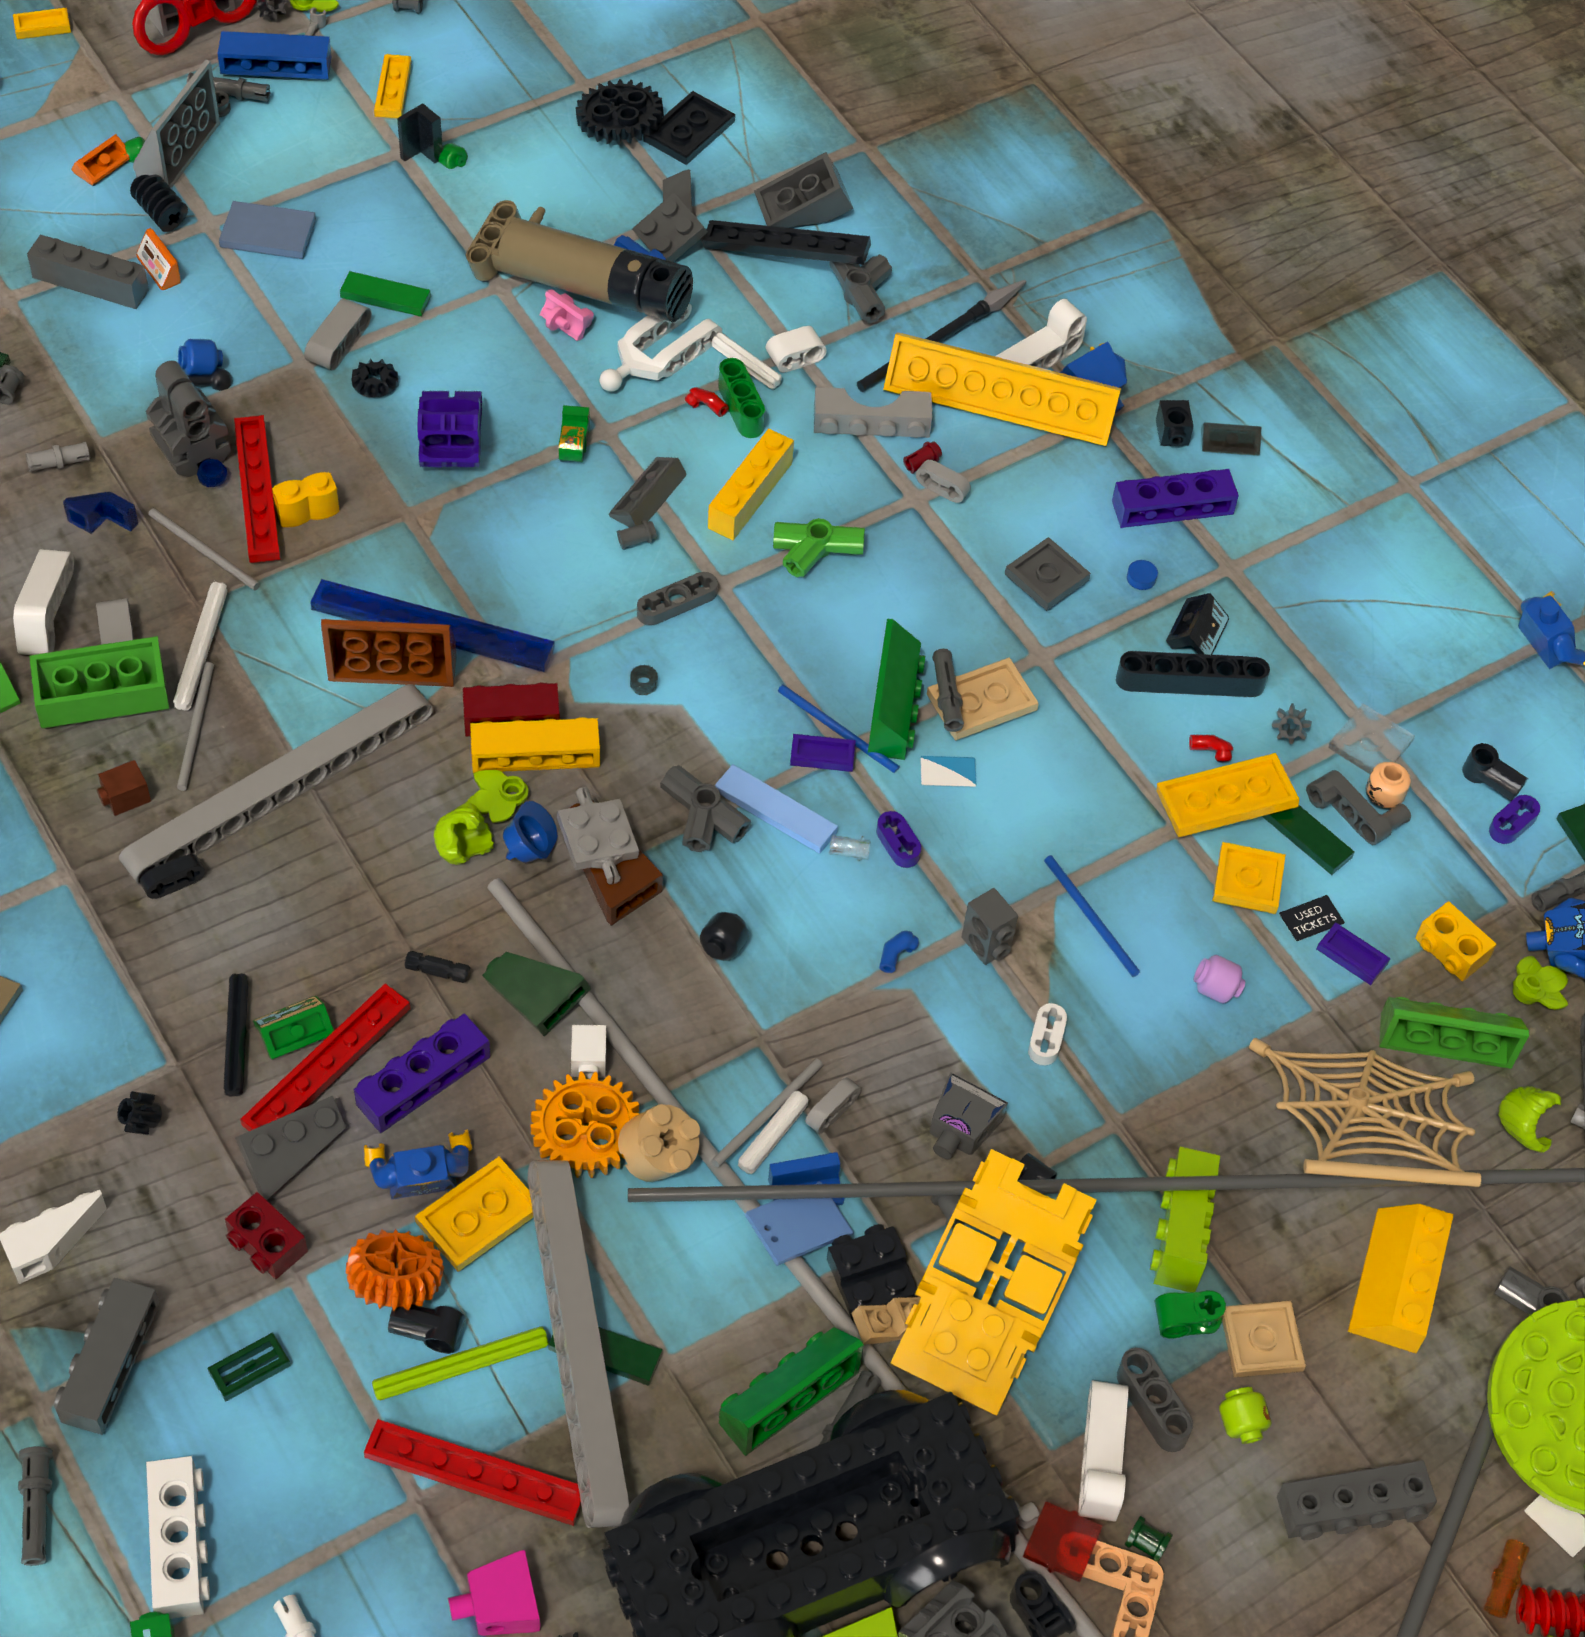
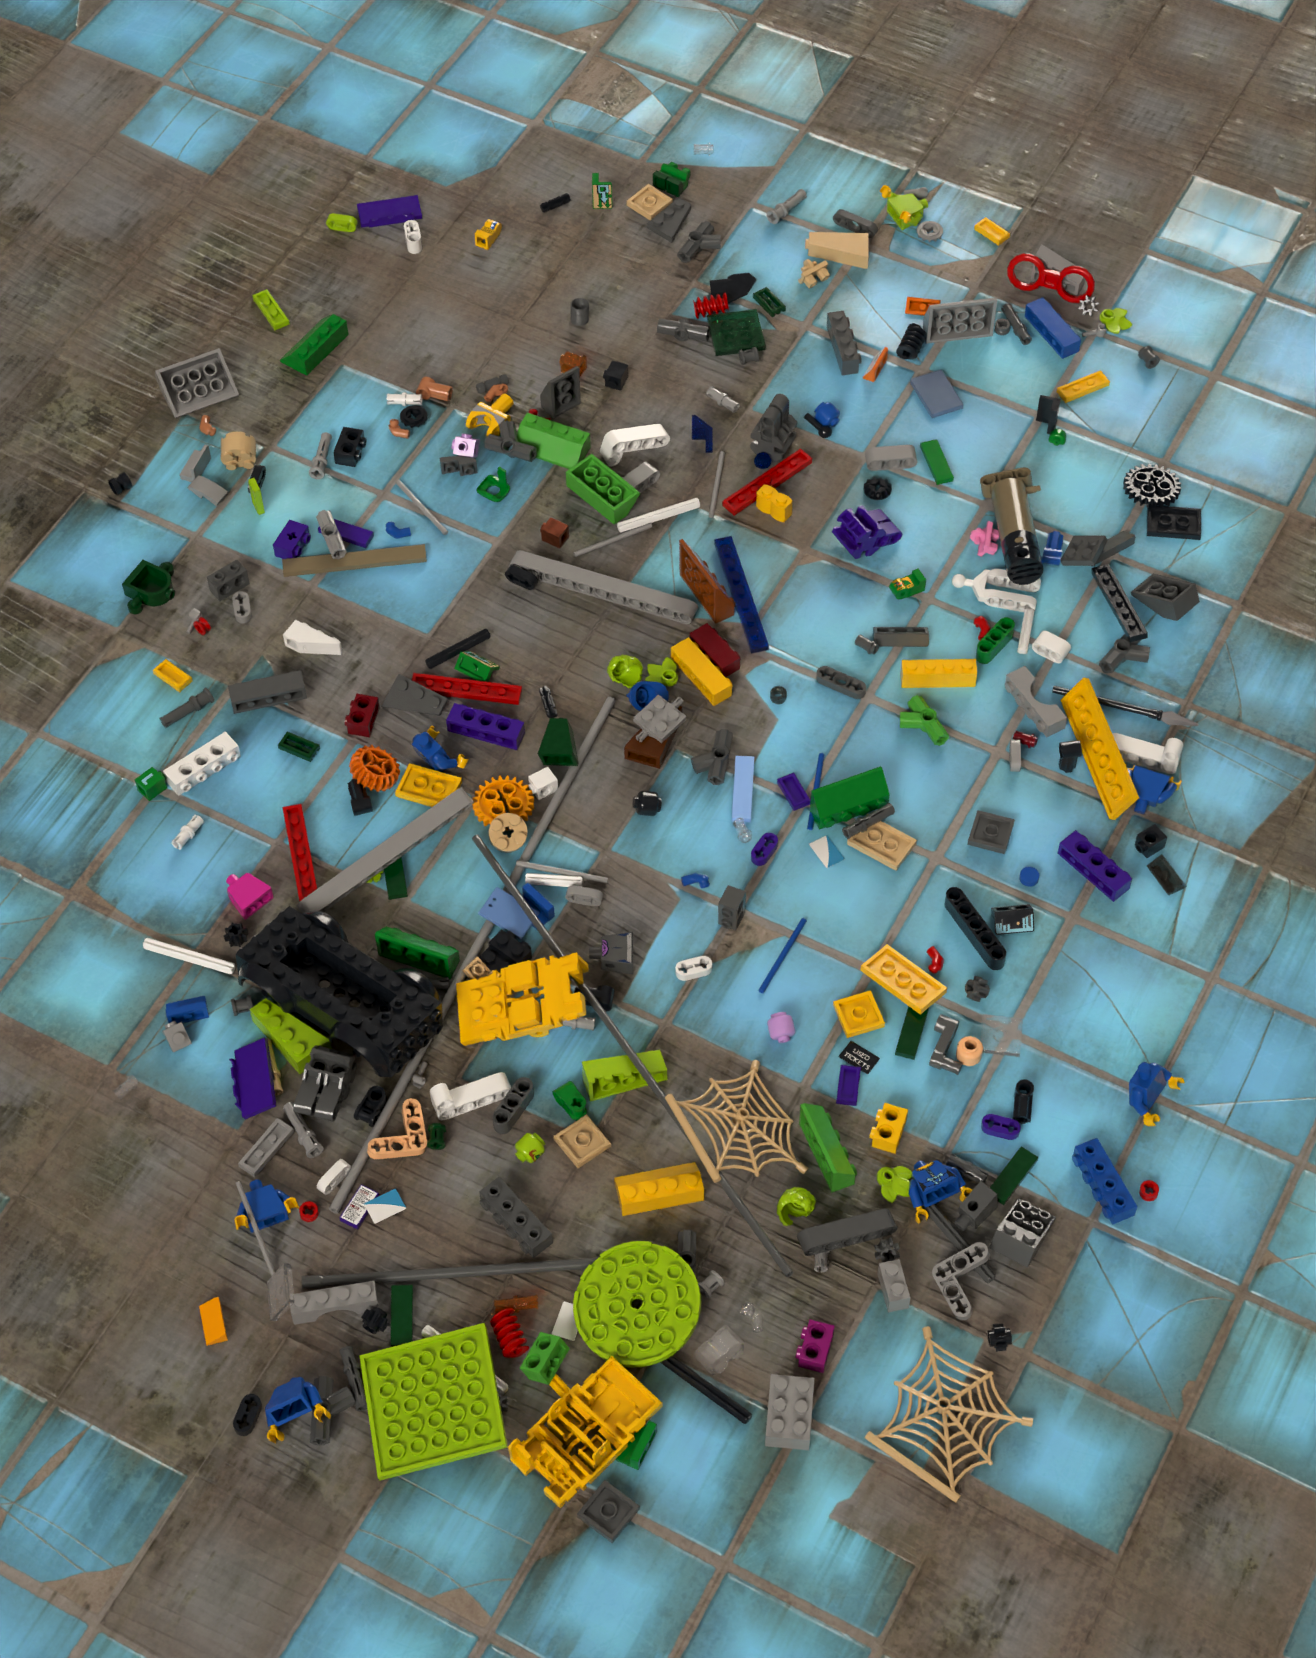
camera: 65 degrees right, 0 degrees up
(139, 1113) = (390, 635): black gear -> none
(459, 1363) = (348, 819): lime axle -> none
(993, 422) = (1069, 753): none -> black piece
(1062, 1541) = (410, 1098): clear red piece -> none

